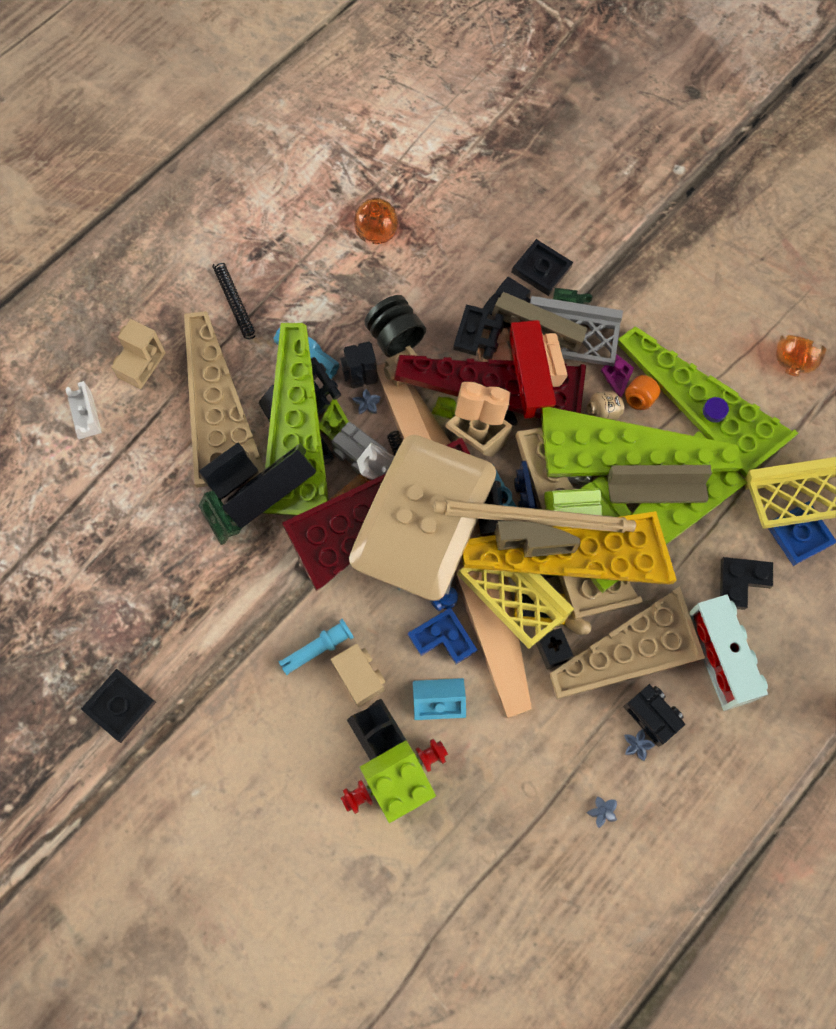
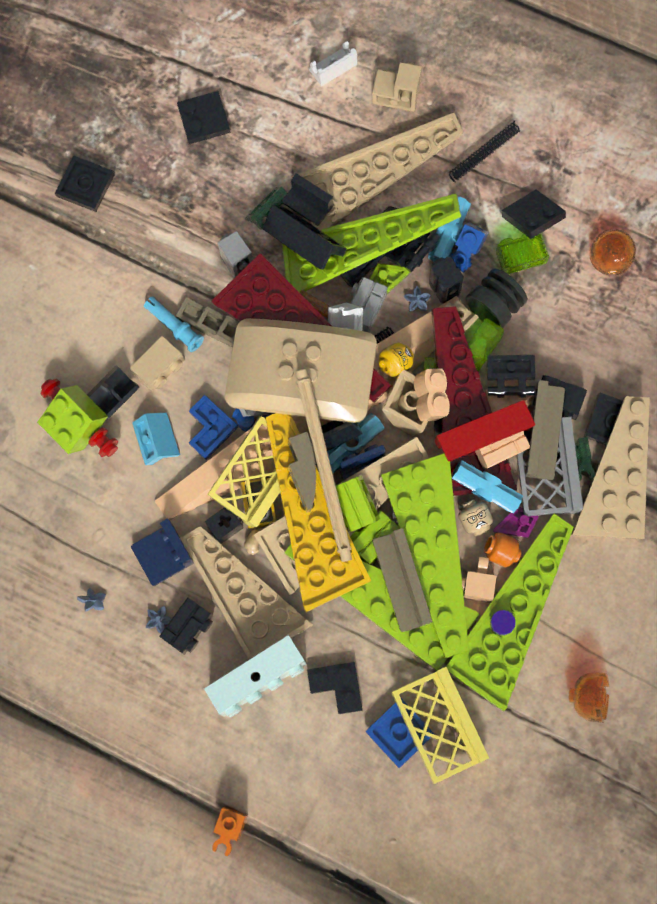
camera: 80 degrees right, 5 degrees up
(89, 558) = (203, 117): none -> black plate
(264, 558) = (234, 253): none -> light grey brick
(317, 273) = (533, 214): none -> black plate
(328, 335) = (469, 242): none -> blue brick
(331, 604) = (208, 321): none -> dark tan slope
(352, 295) = (521, 253): none -> clear neon green brick
(430, 345) = (485, 341): none -> clear neon green brick
(433, 427) = (395, 359): none -> yellow head
(569, 721) = (162, 554): none -> dark blue bracket
(582, 384) = (487, 486): none -> medium azure piece
(607, 278) = (618, 490): none -> tan wing
(673, 419) = (479, 584): none -> light nougat brick

